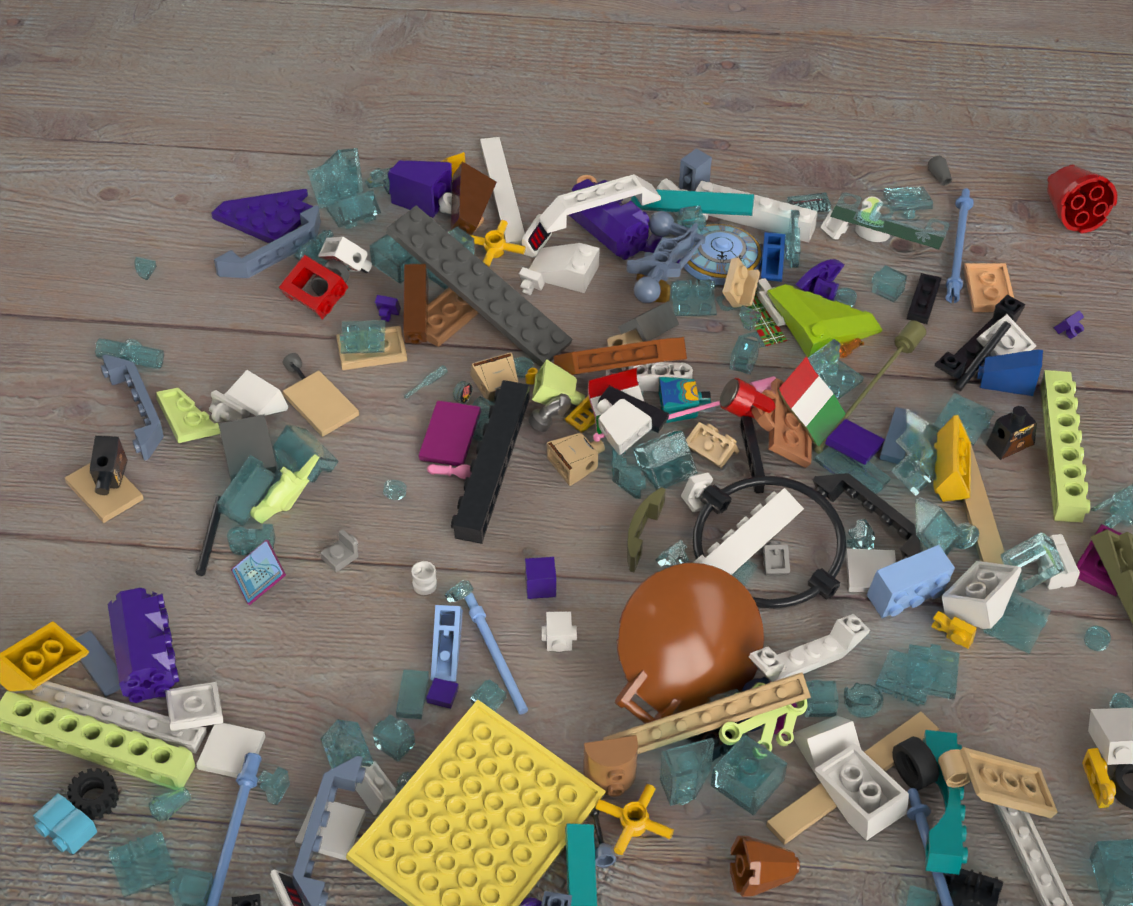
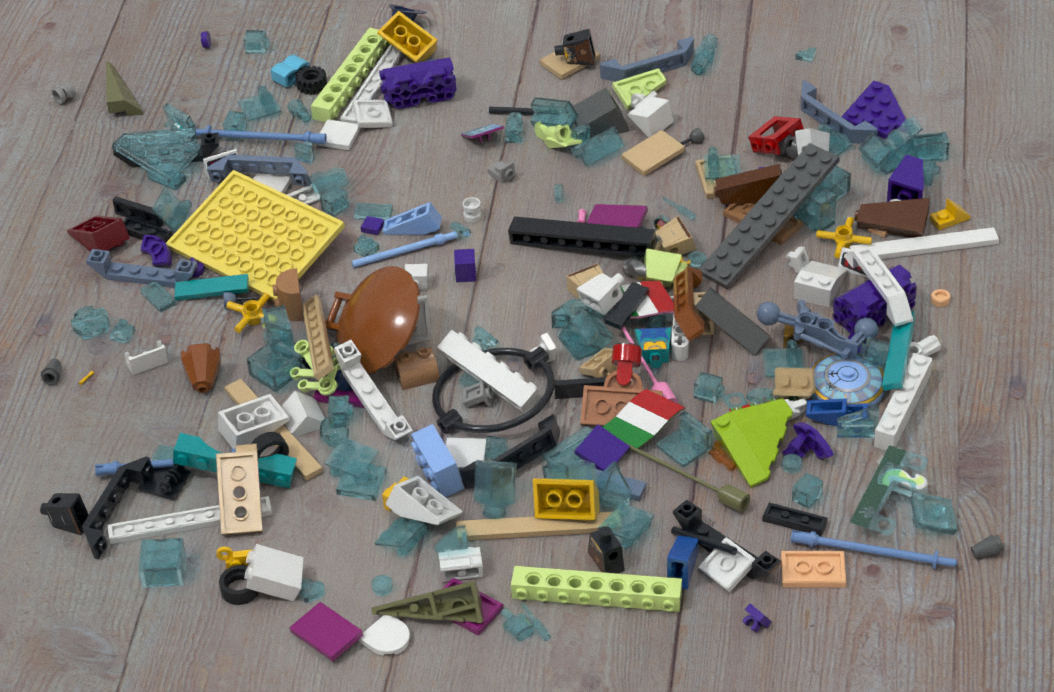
camera: 95 degrees right, 5 degrees down
(649, 508) = (510, 317): olive slope -> none
(694, 169) = (946, 357): sand blue brick -> none
(817, 202) = (928, 447): clear light blue tile -> none
(1081, 198) = (936, 636): red cone -> none

